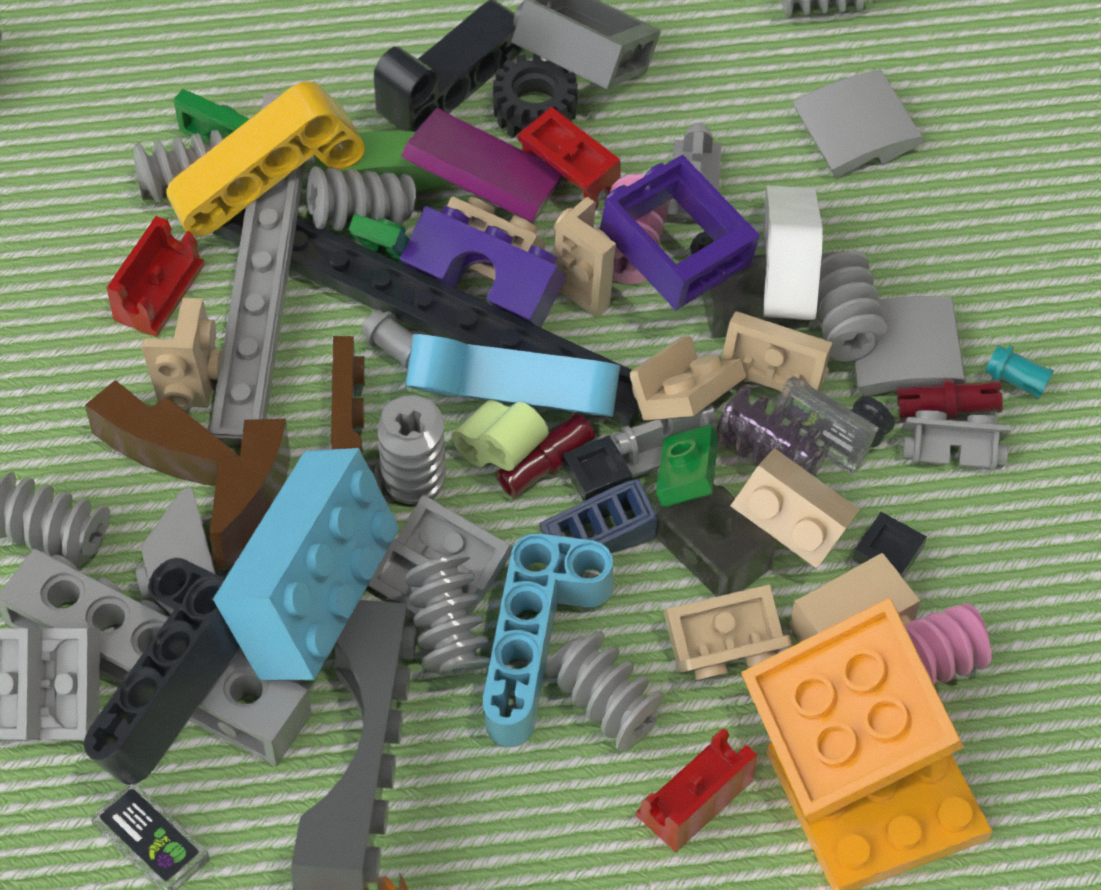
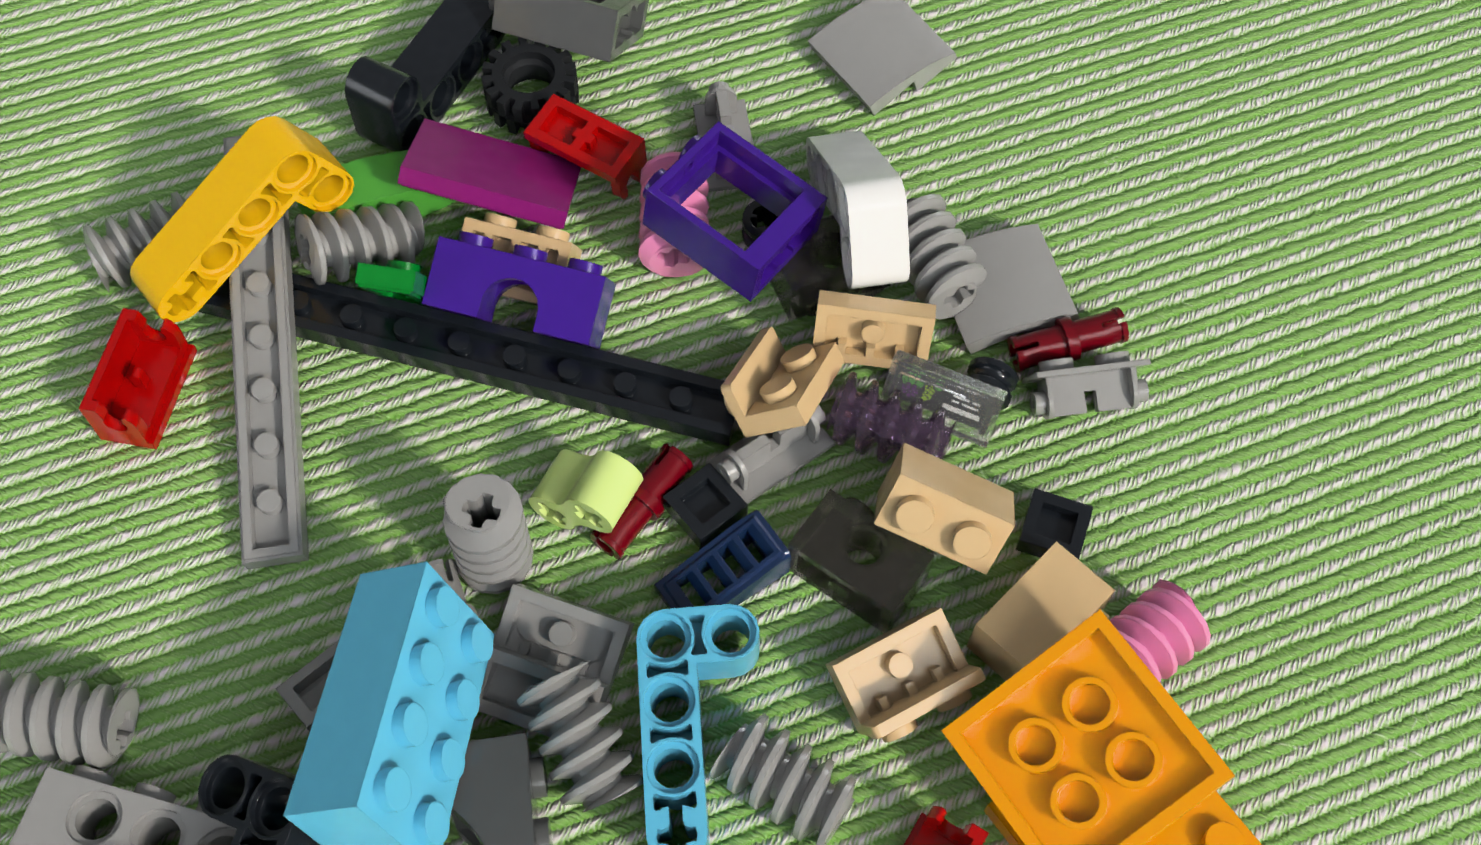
camera: 15 degrees left, 5 degrees up
(156, 436) = (183, 578): reddish brown slope -> none
(175, 535) = (233, 719): light grey slope -> none
(188, 363) = (198, 482): tan bracket -> none
(203, 116) = (157, 178): green plate -> none
(247, 487) = (301, 626): reddish brown slope -> none
(346, 409) = (399, 497): reddish brown plate -> none
(385, 332) = (434, 396): light grey pin -> none
(512, 376) = (584, 418): medium azure beam -> none
(584, 257) = (633, 259): tan bracket -> none
(687, 465) = (811, 484): green plate -> none
(1018, 371) = (1130, 291): teal pin -> none

